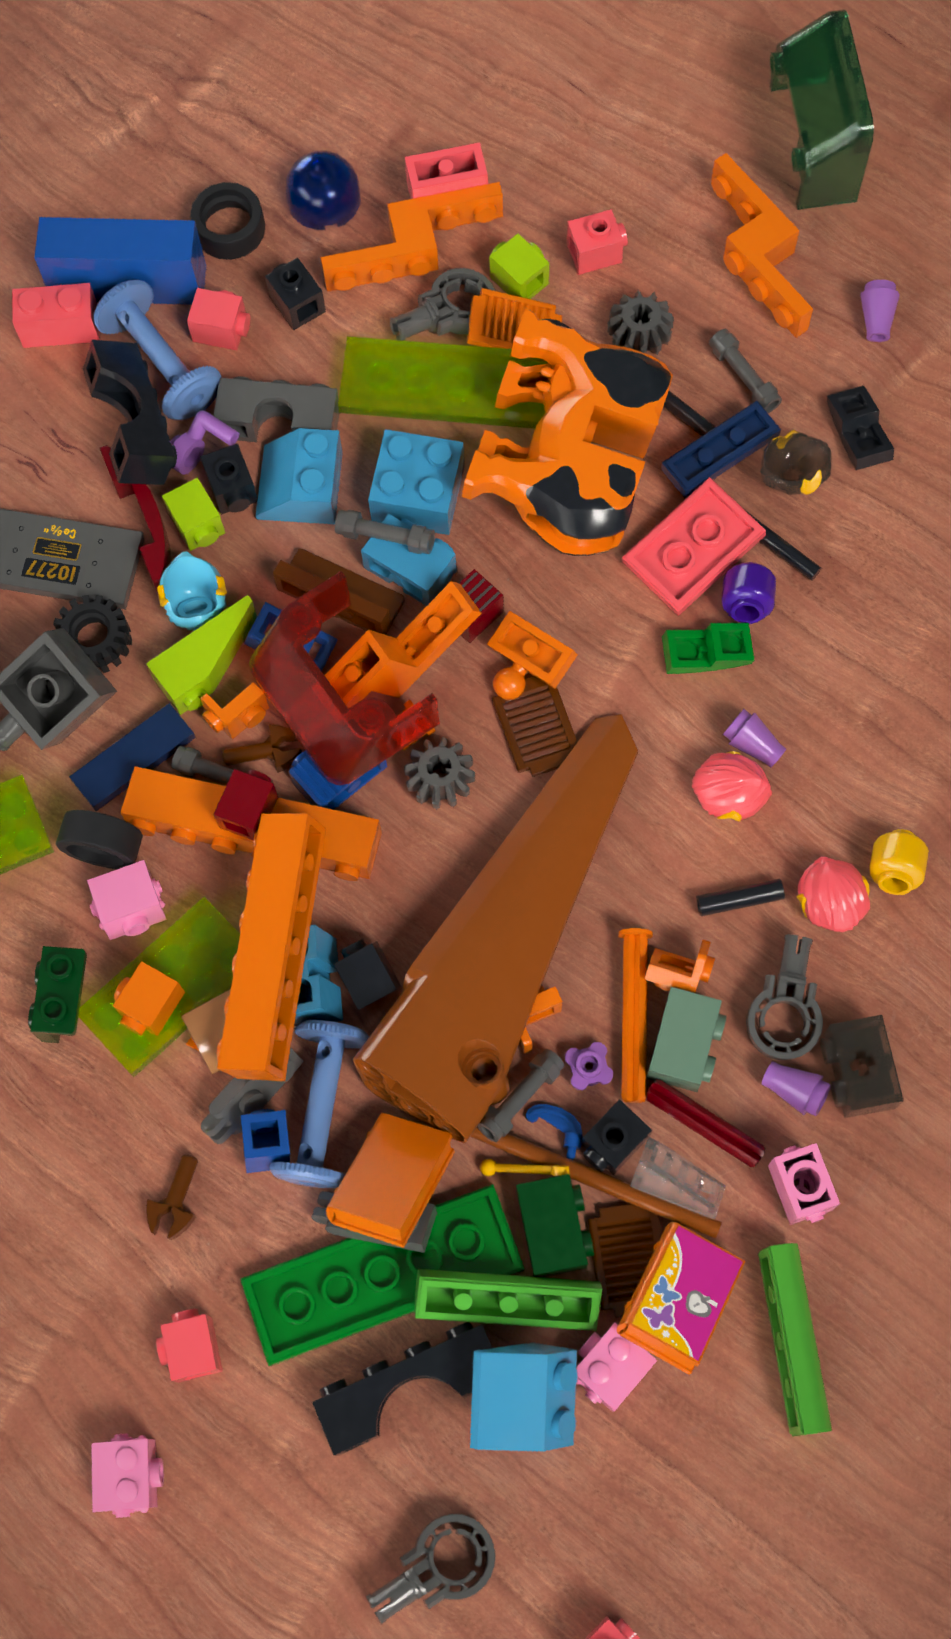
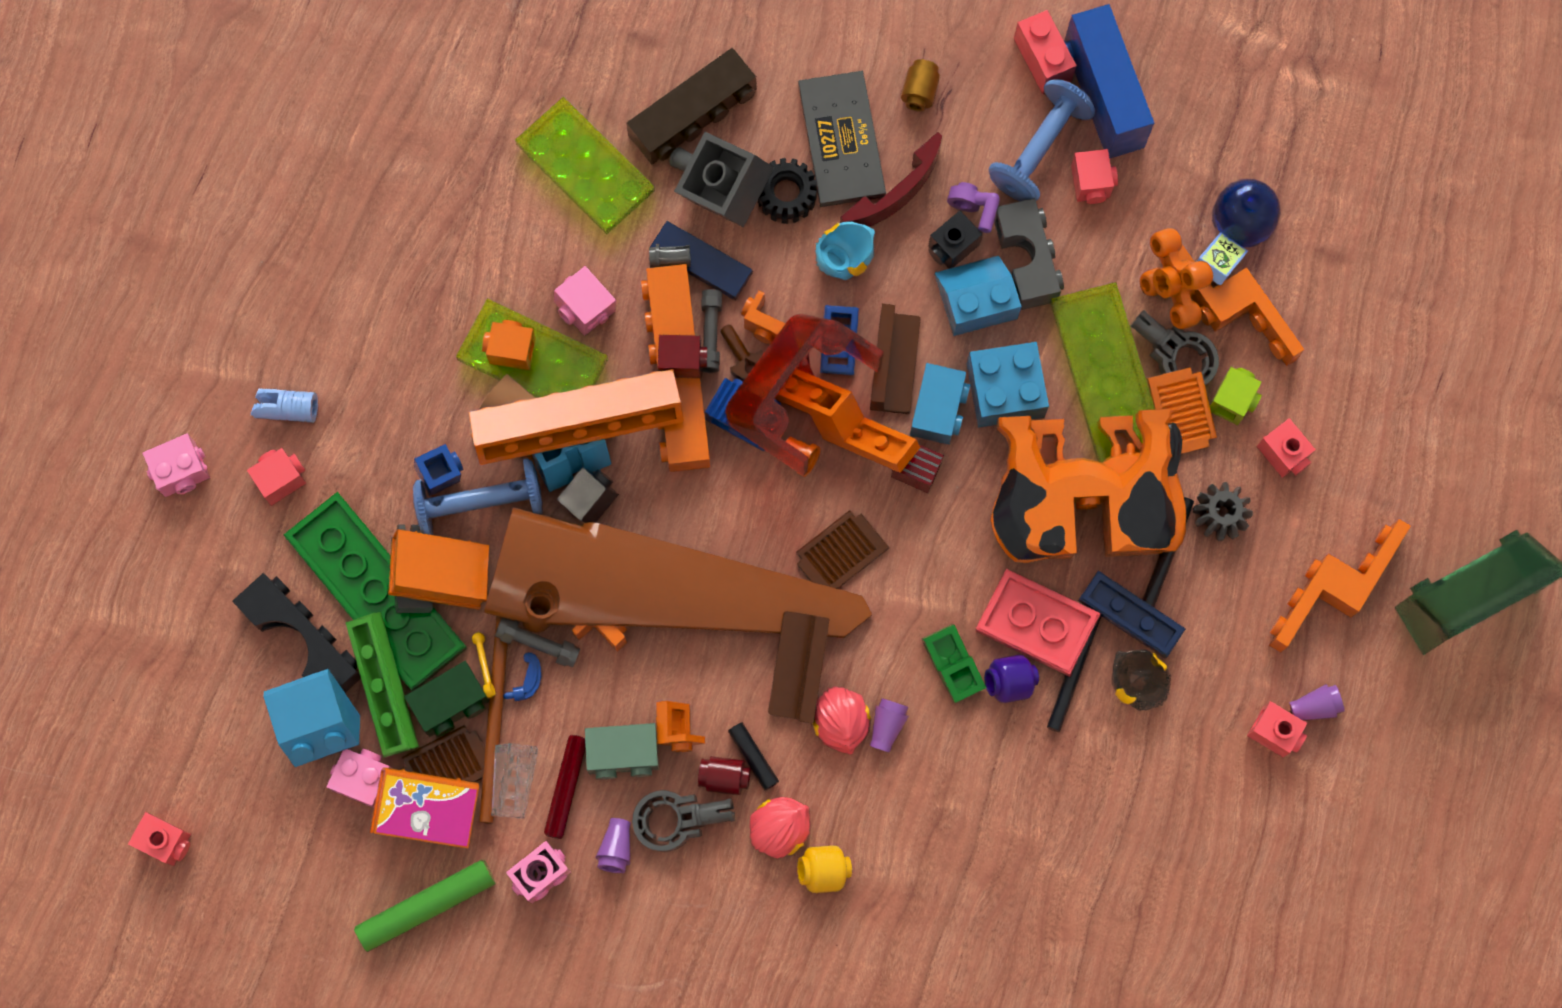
camera: 65 degrees right, 5 degrees up
(34, 452) = (920, 85): none -> pearl gold brick
(58, 993) = (494, 280): dark green bracket -> none
(99, 839) = (620, 262): black tyre -> none
(103, 1308) = (286, 405): none -> light blue hinge
(115, 785) = (669, 256): none -> dark grey pin
(141, 445) = (1006, 121): black arch -> none
(174, 1200) = (377, 424): reddish brown bar -> none
(194, 514) = (911, 225): lime brick -> none
(202, 657) = (792, 278): lime slope -> none
(228, 196) = (1197, 127): black tyre -> none
(242, 1098) = (460, 439): dark grey hinge -> none
(295, 293) = (1139, 225): black brick -> none
(352, 524) = (944, 349): dark grey bar -> none
(366, 227) = (1223, 257): none -> tile
(373, 268) = (1176, 278): none -> orange gear
(408, 1587) = (164, 688): dark grey pin -> none
(429, 783) = (771, 479): dark grey gear -> none
(445, 170) = (1295, 304): coral brick -> none
(530, 652) = (893, 526): orange plate -> none
(580, 1075) = (588, 687): medium lavender plate -> none
(615, 1138) = (528, 722): black brick -> none
(634, 1014) = (629, 706): orange axle -> none
(658, 805) = (798, 666): none -> reddish brown panel
(726, 347) = (1231, 590): dark grey bar -> none
(753, 935) = (723, 775): none -> dark red brick
(859, 427) = (1201, 723): black slope -> none
(867, 1041) = (638, 908): clear smoke brick -> none
(893, 355) = (1278, 730): none -> coral brick

